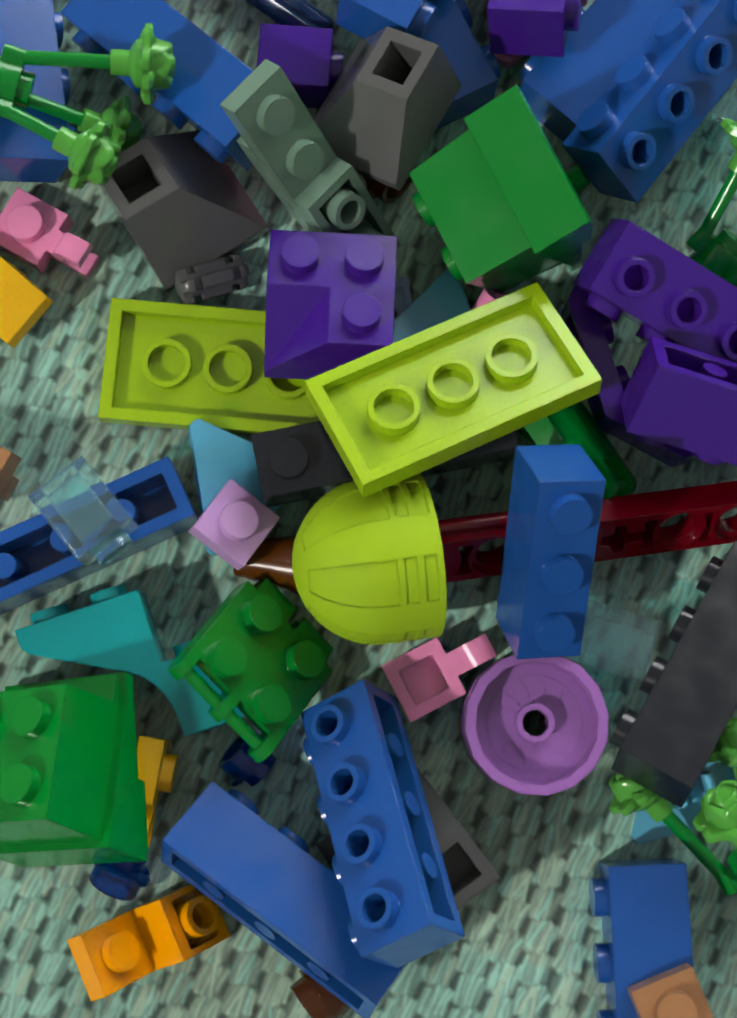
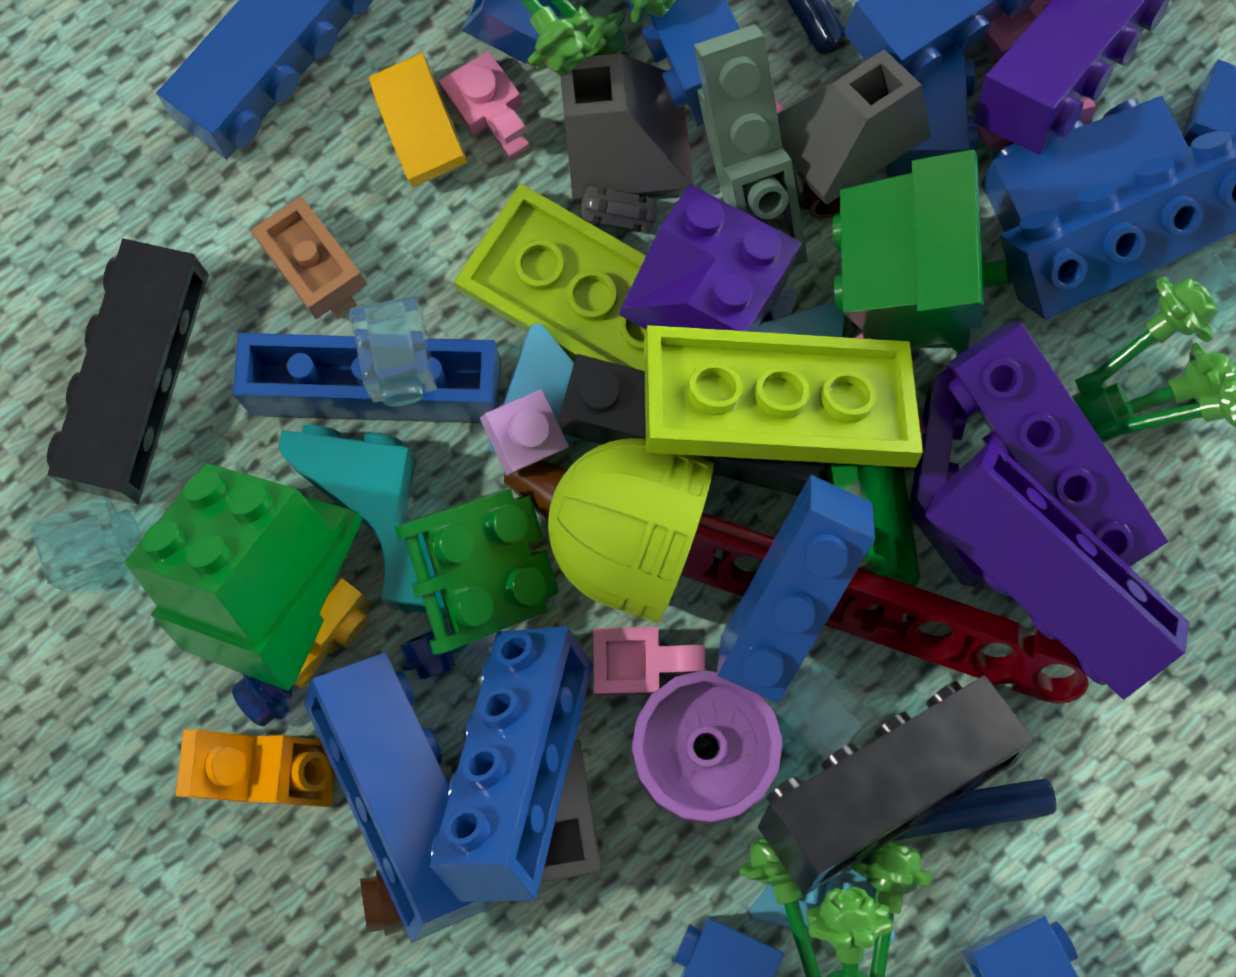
camera: 35 degrees right, 5 degrees down
(305, 58) = (798, 53): dark purple brick -> none

